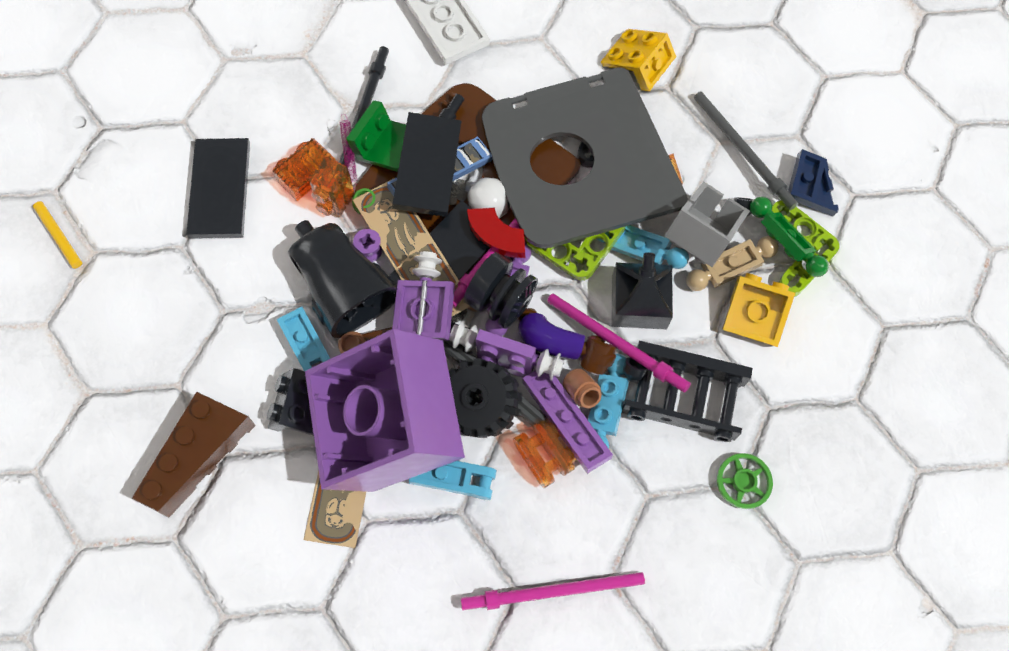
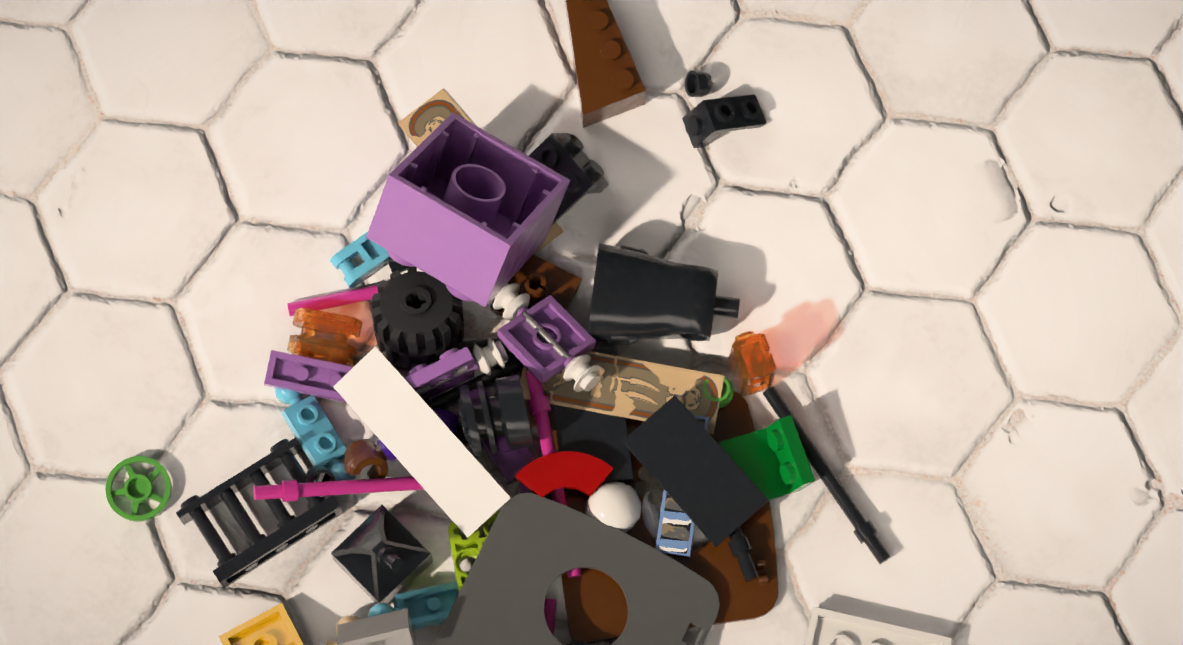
camera: 135 degrees right, 5 degrees up
(57, 234) = (936, 96): yellow bar -> none
(170, 378) = (698, 83): none -> black hinge
(179, 339) = (722, 115): none -> black bracket
(218, 188) = (860, 274): black tile -> none
(295, 170) = (805, 364): clear orange brick -> none
(303, 338) = (615, 223): medium azure plate -> none
(348, 148) = (755, 403): dark pink piece -> none
(350, 341) = (578, 261): nougat plate -> none
(371, 250) = (665, 360): medium lavender wheel -> none
(493, 599) = (248, 193): dark pink bar -> none
(510, 471) = (334, 300): none -> dark pink bar
(558, 323) = (421, 442): none -> white sticker
(582, 388) = (343, 420): nougat brick -> none

